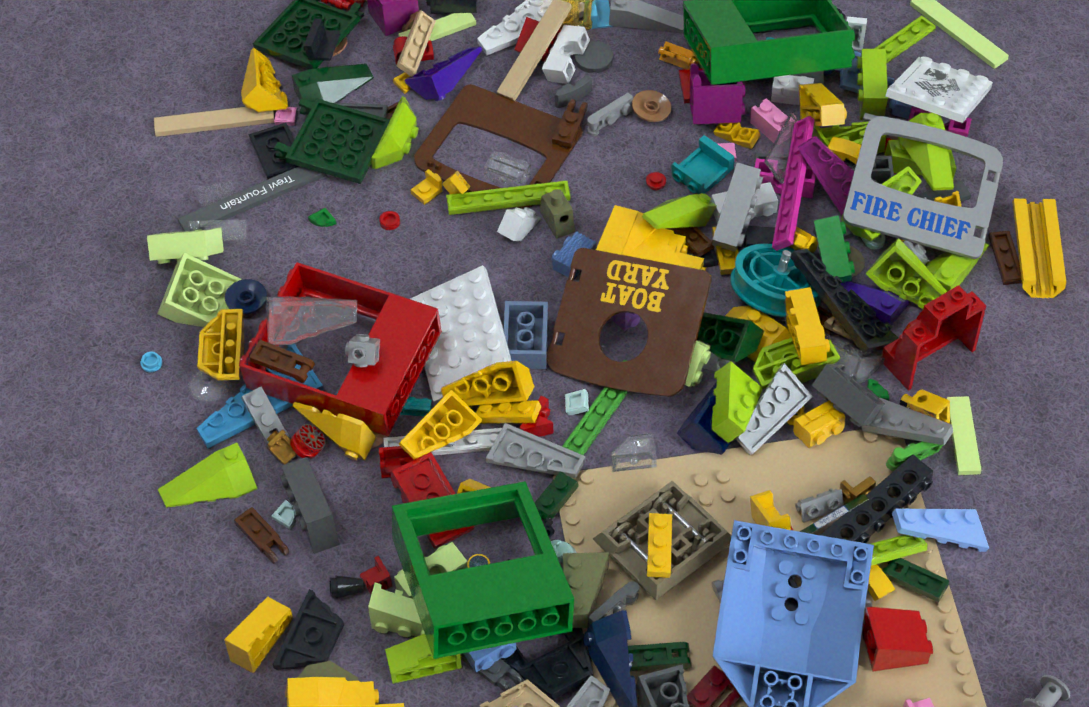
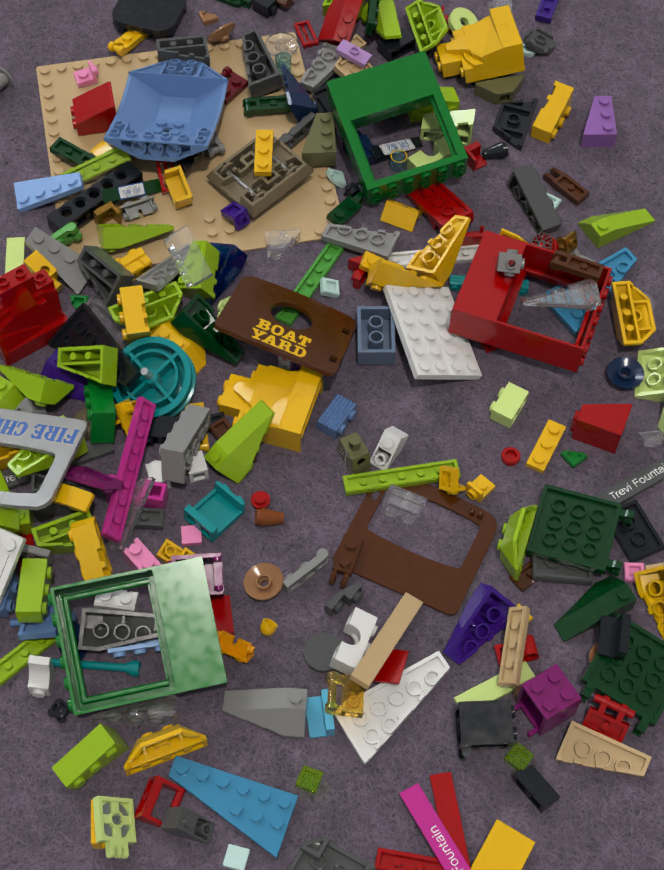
camera: 175 degrees right, 5 degrees up
(195, 620) = (601, 124): none -> medium lavender wedge
(286, 231) = (600, 425): none -> red slope
(349, 229) = (545, 446): none -> yellow plate
(383, 264) = (508, 405): none -> yellowish green brick
(645, 77) = (268, 627): none -> yellow hinge
(647, 163) = (268, 517): none -> dark orange cone
(695, 486) = (236, 214): none -> dark purple bracket
(748, 401) = (187, 257): none -> clear windscreen
(823, 466) = (117, 236): none -> lime wedge
(850, 273) = (92, 362): none -> lime wedge

